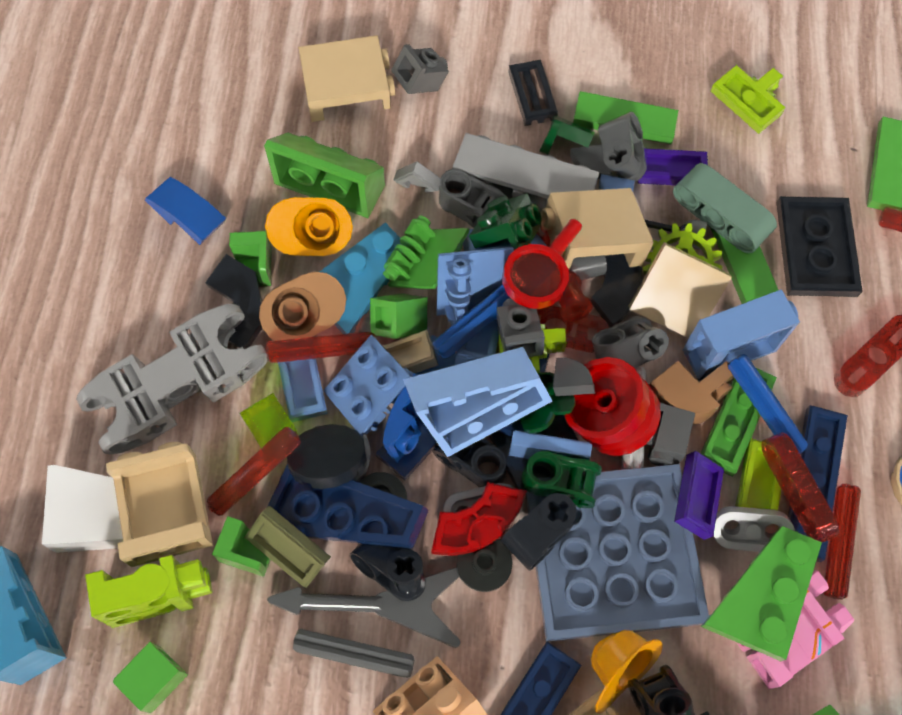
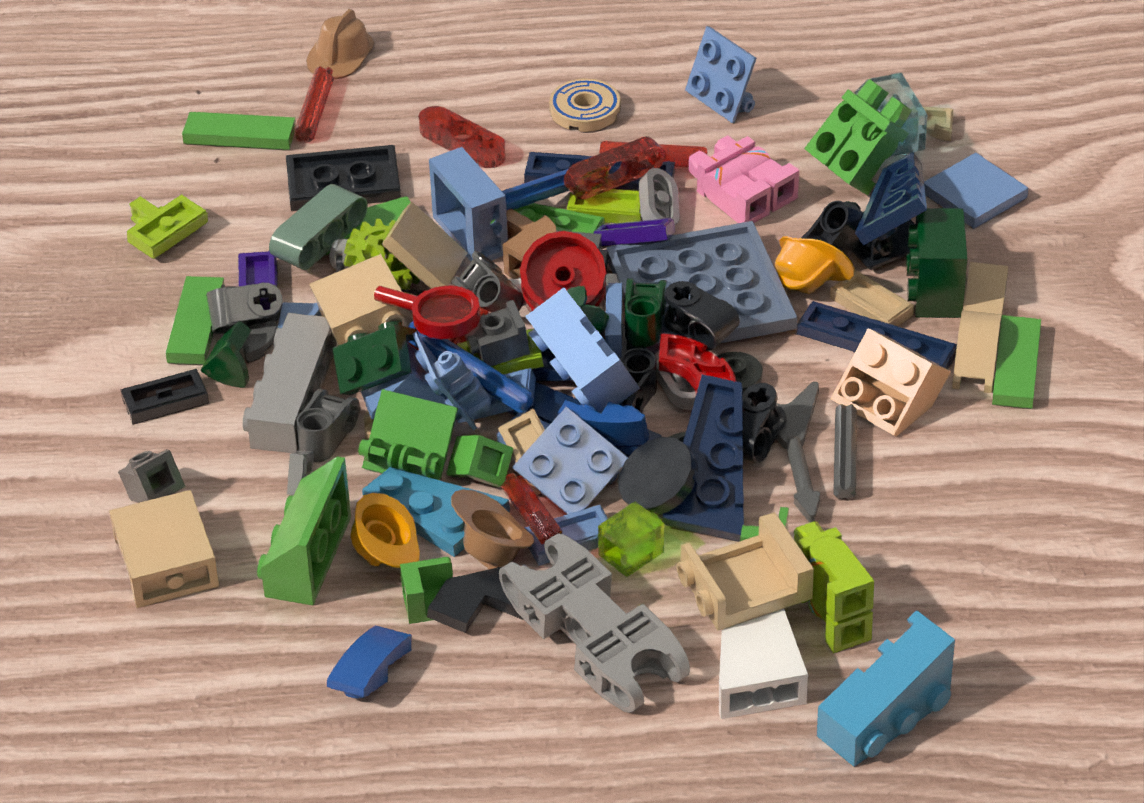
camera: 95 degrees left, 25 degrees down
(149, 678) = (911, 571): bright green panel -> none
(253, 471) = (675, 518): clear red axle -> none
(287, 546) = (758, 496): olive tile -> none
(572, 378) = (543, 288): dark grey tile -> none
(769, 596) = (729, 173): bright green wing -> none

